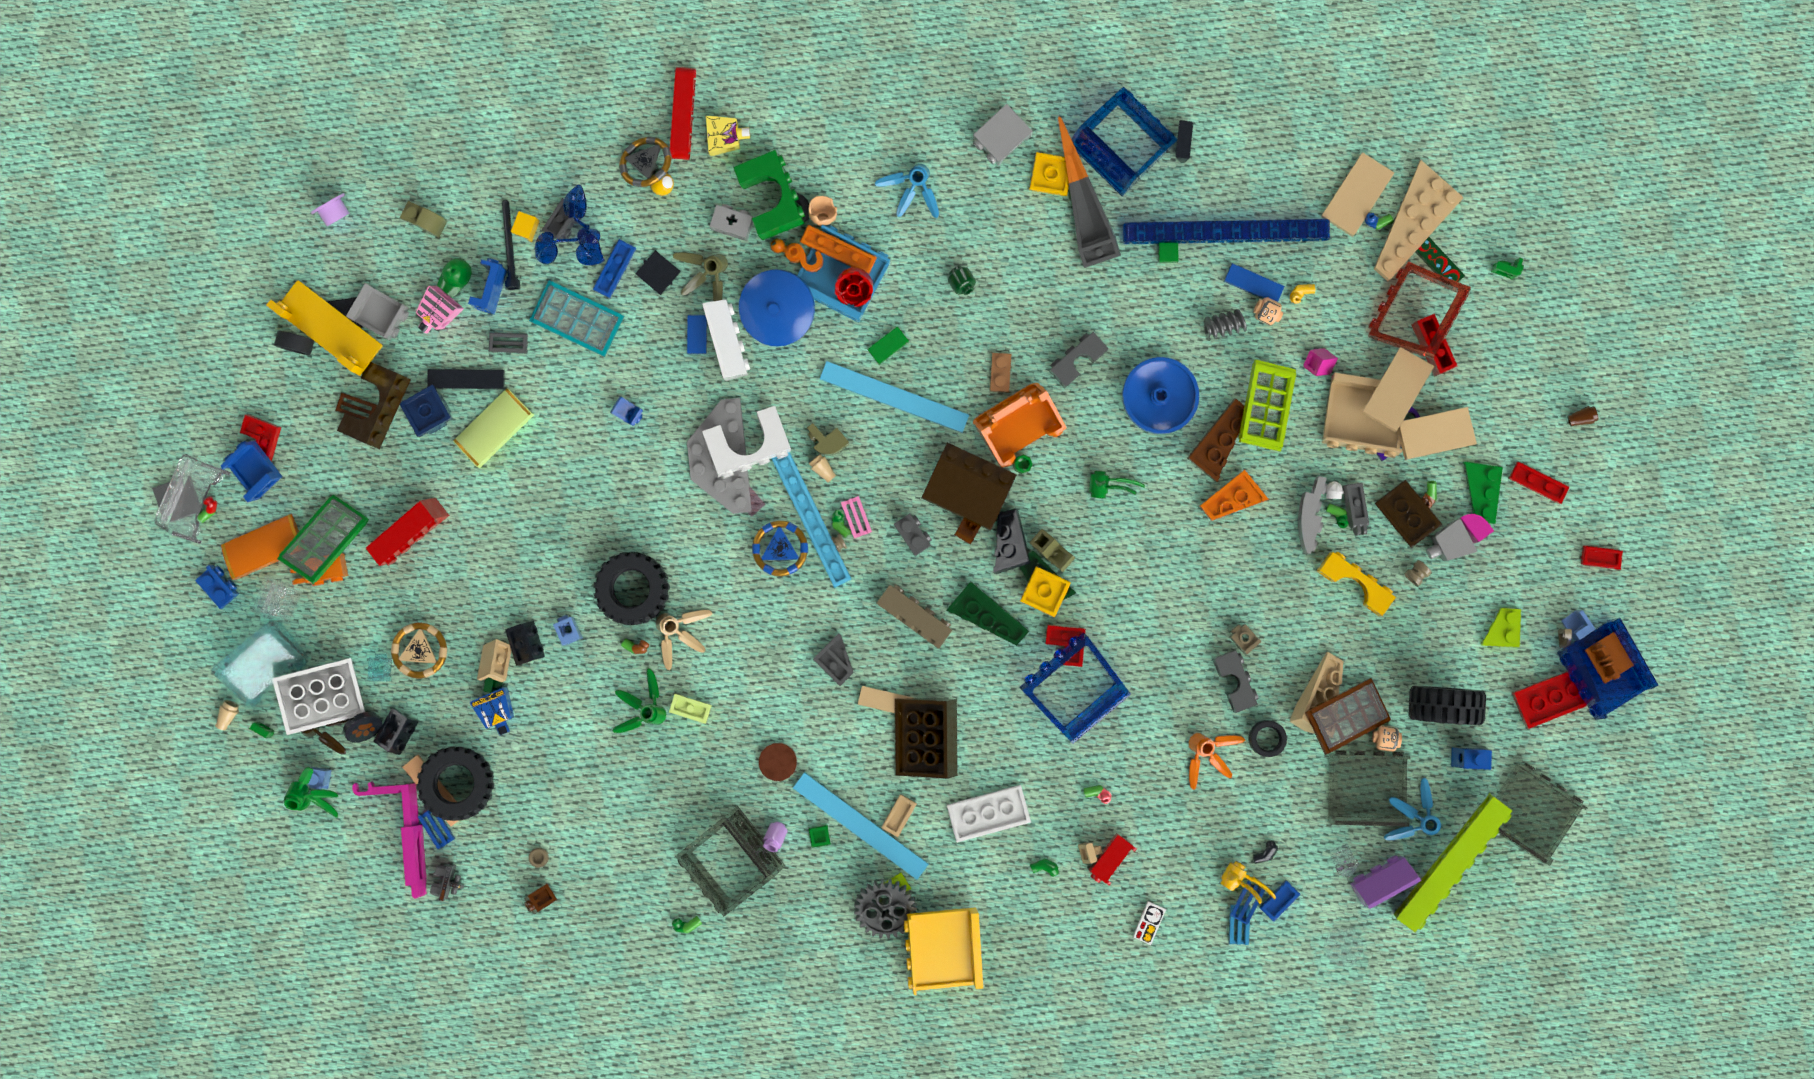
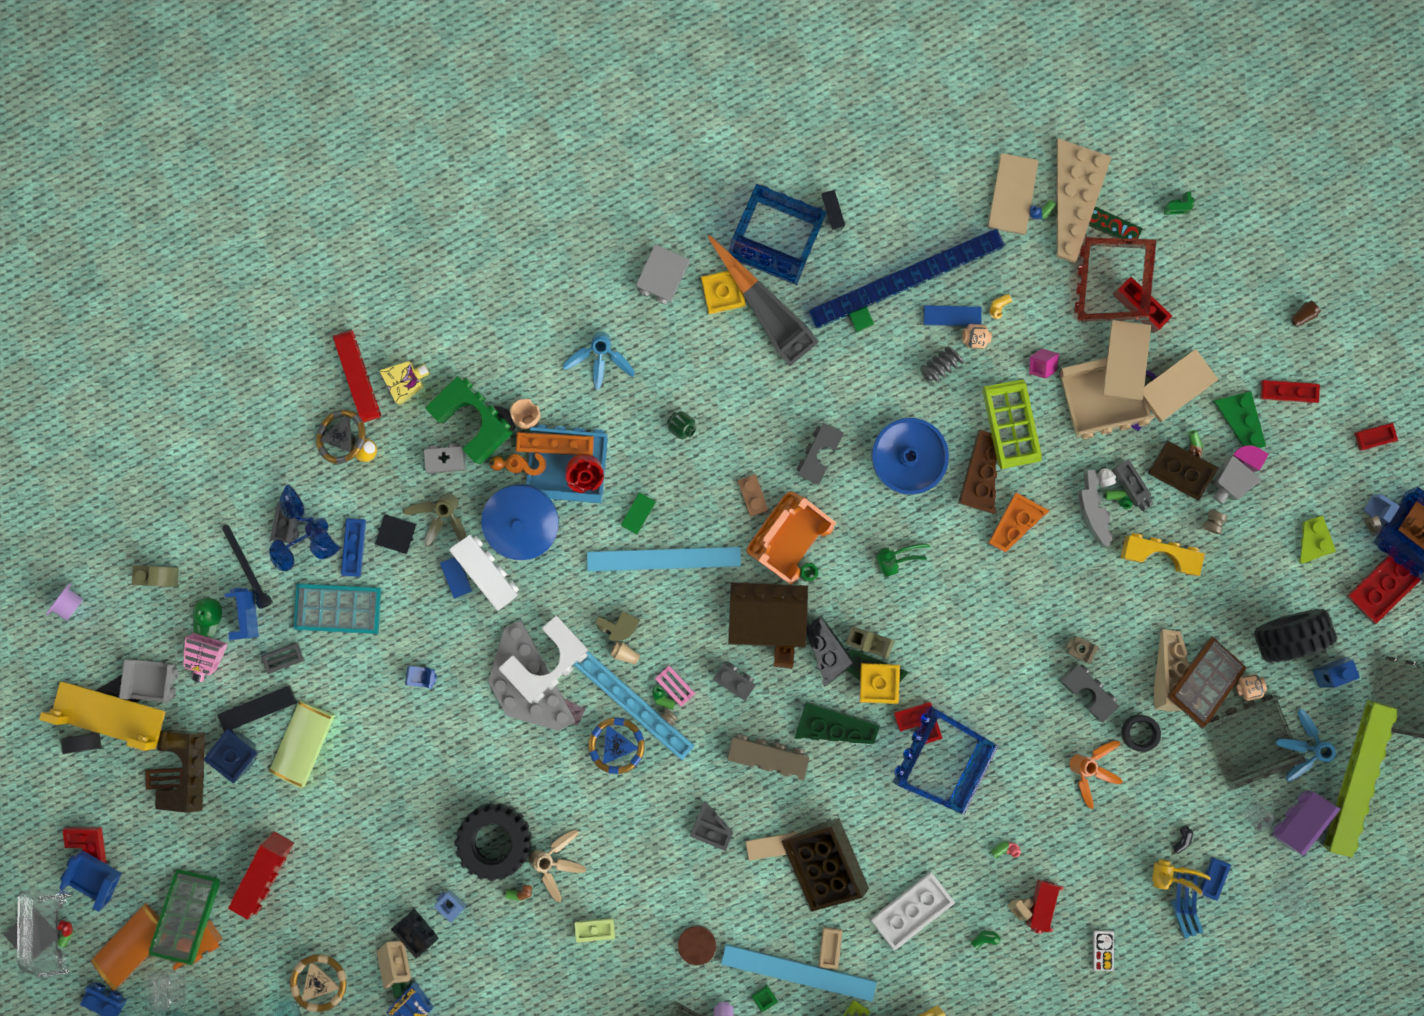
camera: 25 degrees left, 0 degrees up
(525, 226) = (253, 543): yellow panel -> none
(649, 713) = (558, 952): green plant -> none

